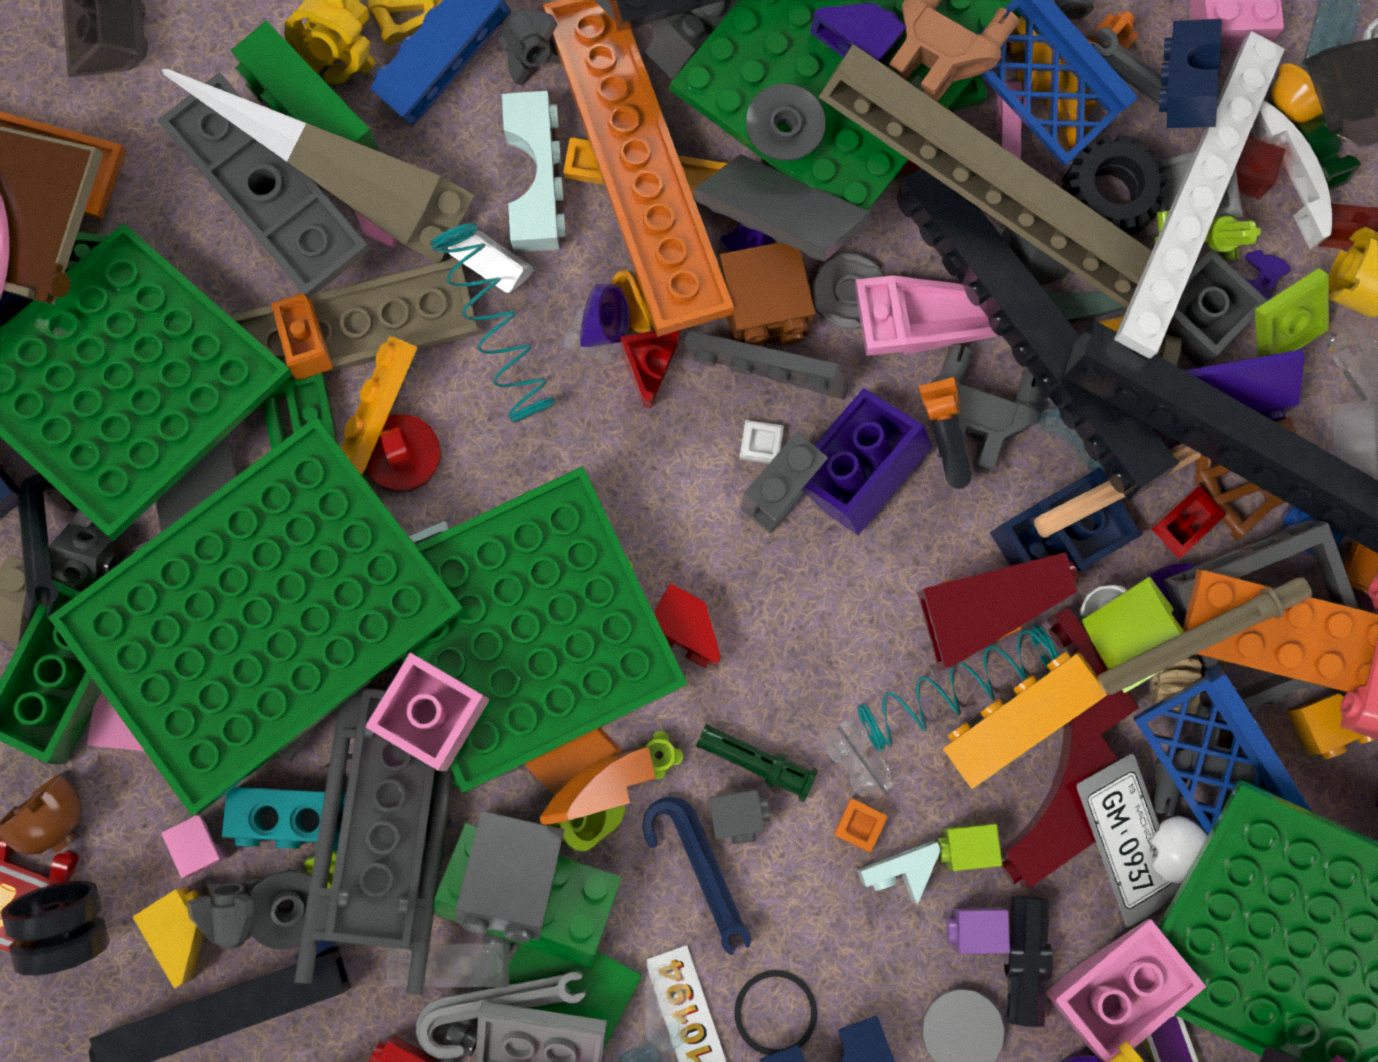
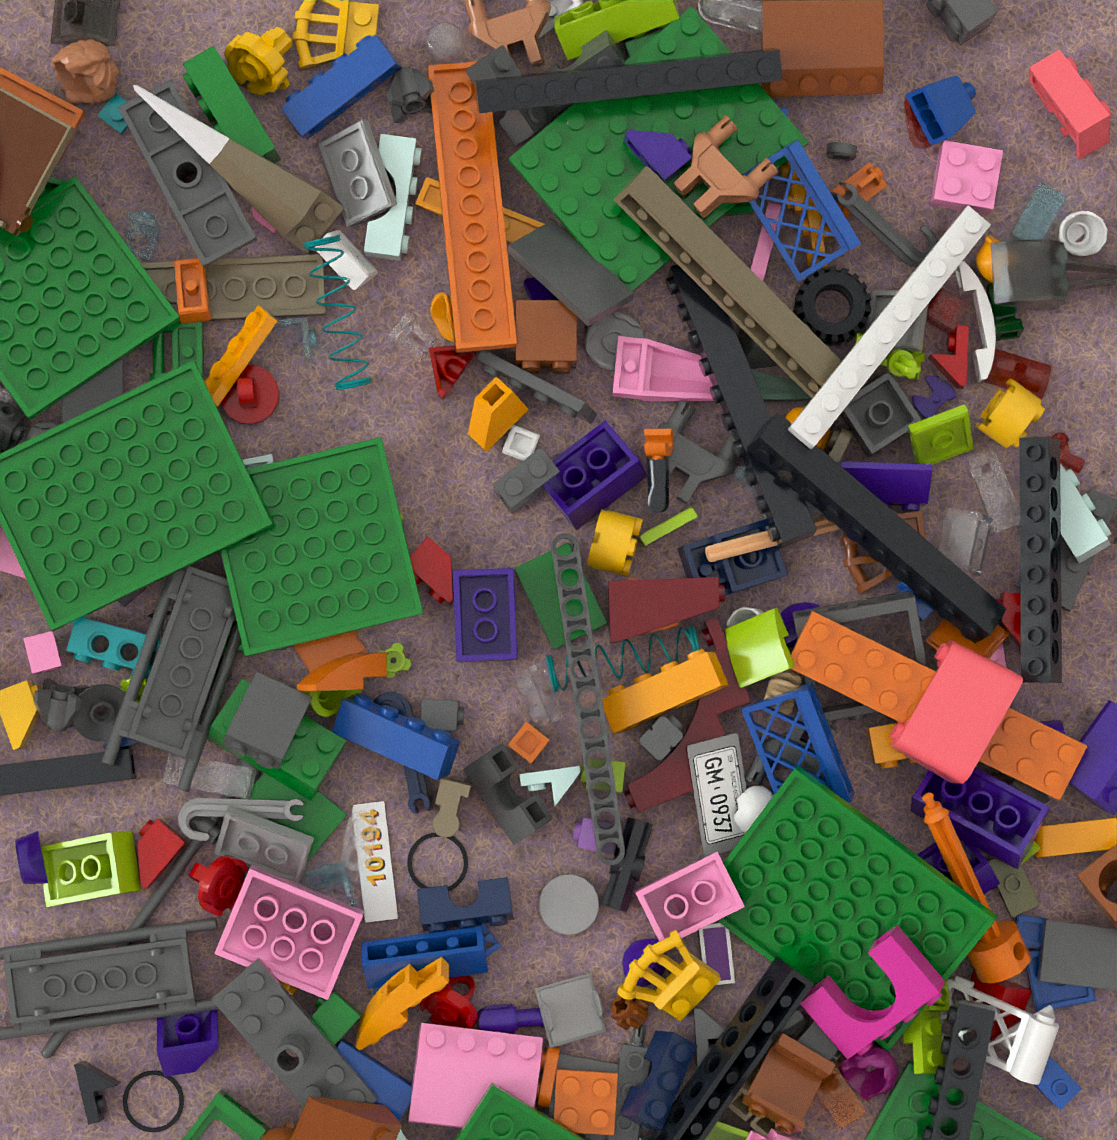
camera: 15 degrees right, 5 degrees up
(113, 93) = (86, 72): none -> nougat hair
(162, 146) = (111, 115): none -> teal plate
(225, 268) = (142, 224): none -> clear light blue bracket
(427, 713) = (232, 594): bright pink brick -> none
(446, 348) = (309, 336): none -> clear light blue bracket
(483, 149) = (357, 173): none -> light grey tile
(605, 316) = (423, 324): dark purple piece -> none
(687, 856) = (396, 736): none -> blue brick
(721, 409) = (494, 413): none -> light orange slope
(767, 669) = (485, 615): none -> dark purple brick
(775, 769) = (476, 689): dark green pin -> none
(776, 928) = (449, 796): none -> dark tan legs
(788, 106) = (585, 196): dark grey dish -> none
(856, 624) = (540, 586): none -> green tile
(869, 927) = (515, 814): none -> dark grey arch
(914, 539) = (614, 542): none -> yellow brick
(962, 805) = (586, 714): none -> dark grey beam
(974, 506) = (668, 527): none -> lime tile
(1036, 780) = (663, 735): none -> dark grey brick
(1188, 521) = (822, 573): red slope -> none
(1191, 74) = (915, 213): dark blue arch -> none
(1258, 609) = (840, 648): dark tan axle -> none
(1282, 228) = (955, 365): none -> red slope

